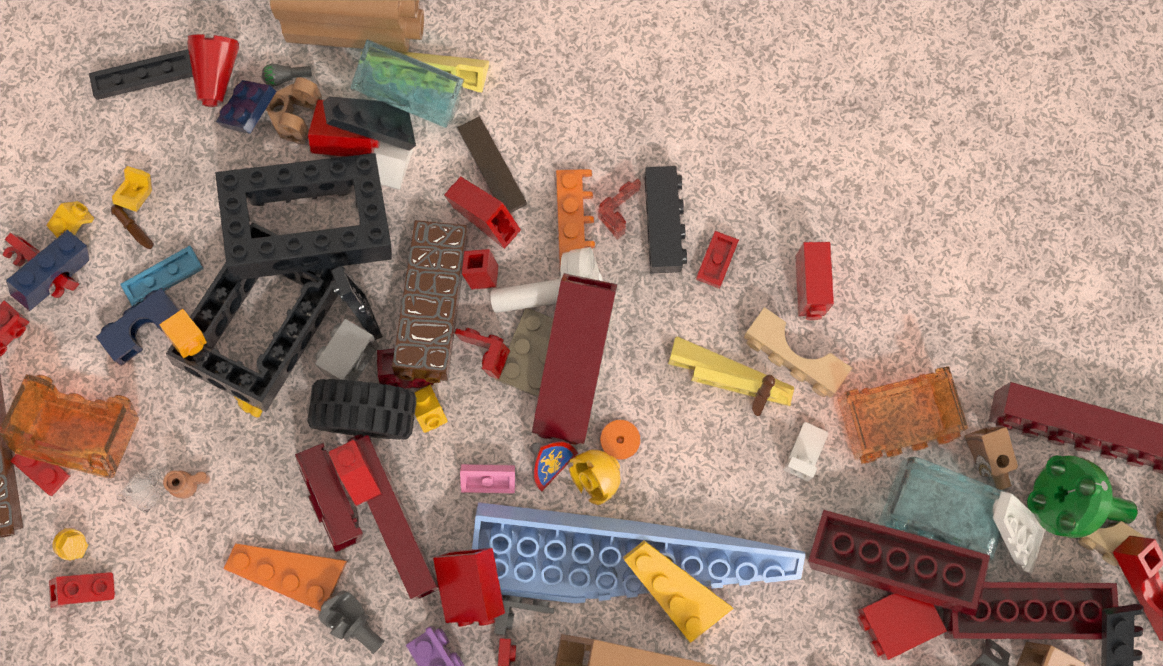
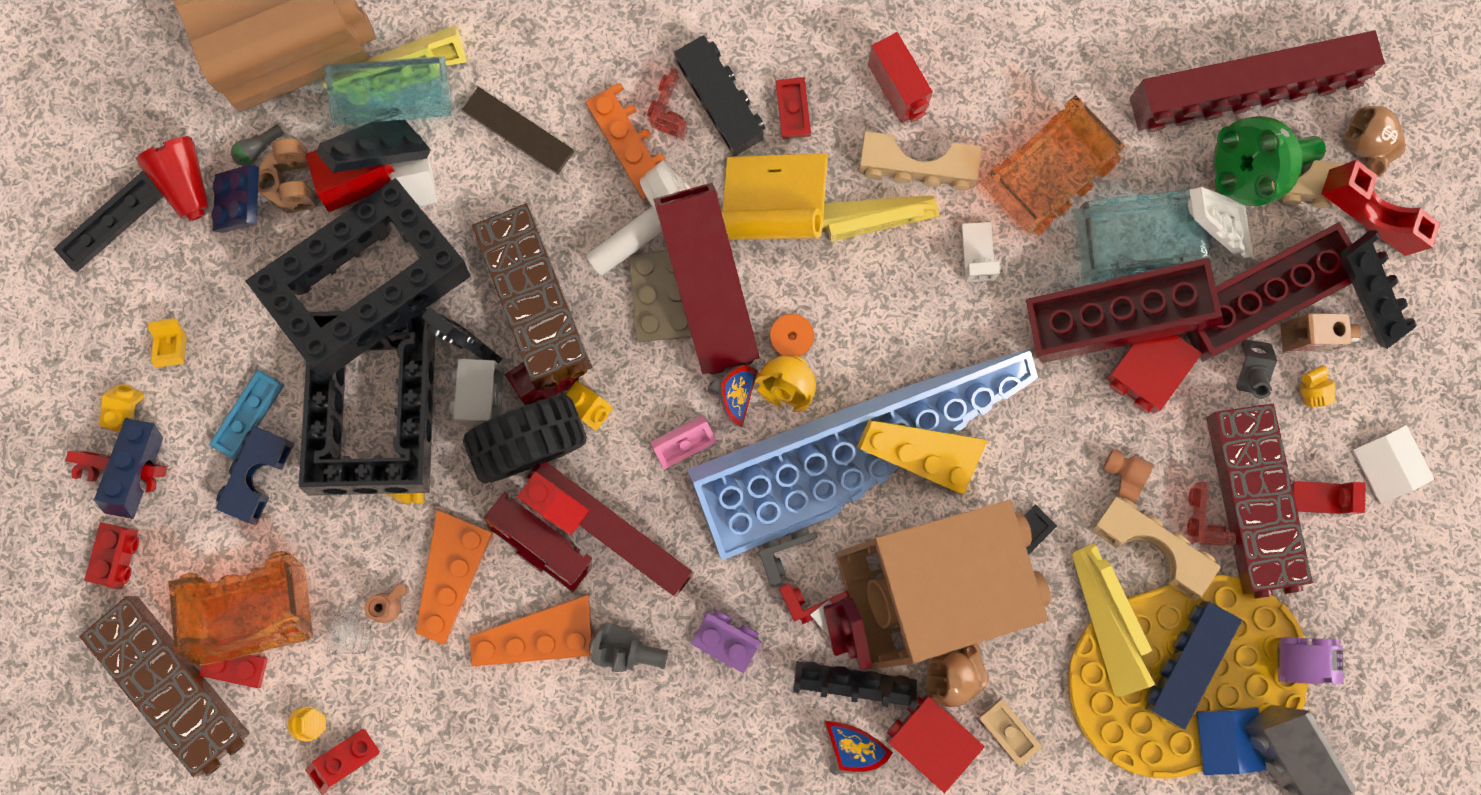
camera: 20 degrees left, 5 degrees up
(131, 226) = (184, 380): reddish brown piece -> none
(183, 334) = (306, 458): light orange brick -> none
(251, 481) = (451, 567): none -> orange wing
(469, 586) = (723, 554): red brick -> none
(480, 269) = (564, 240): red brick -> none
(483, 211) = (534, 180): red slope -> none
(493, 359) = (627, 318): red bracket -> none
(663, 327) = (775, 196): none -> yellow door
(763, 394) = (909, 218): reddish brown piece -> none
(993, 454) = (1160, 159): medium nougat torso -> none

